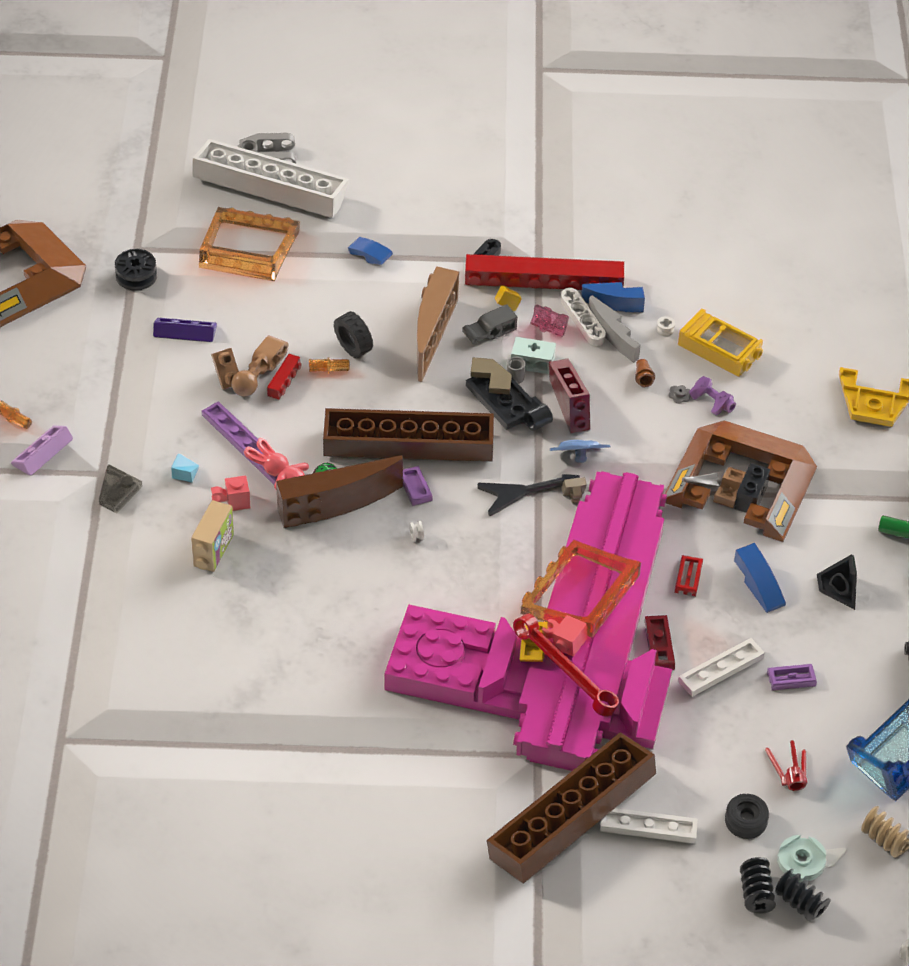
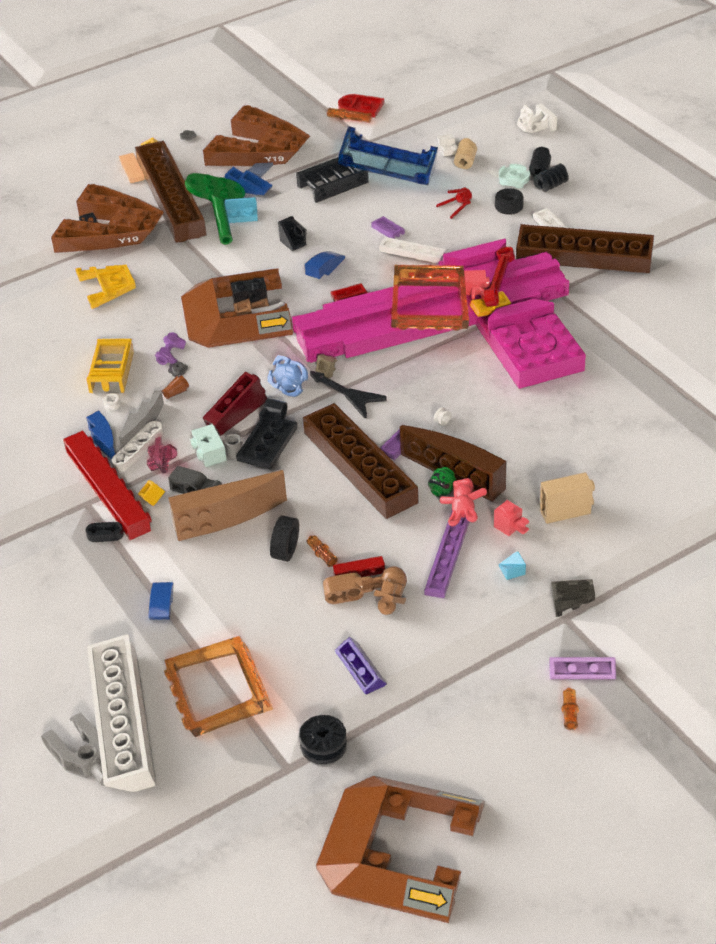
camera: 120 degrees left, 5 degrees down
(488, 368) = (250, 451): dark tan tile -> none

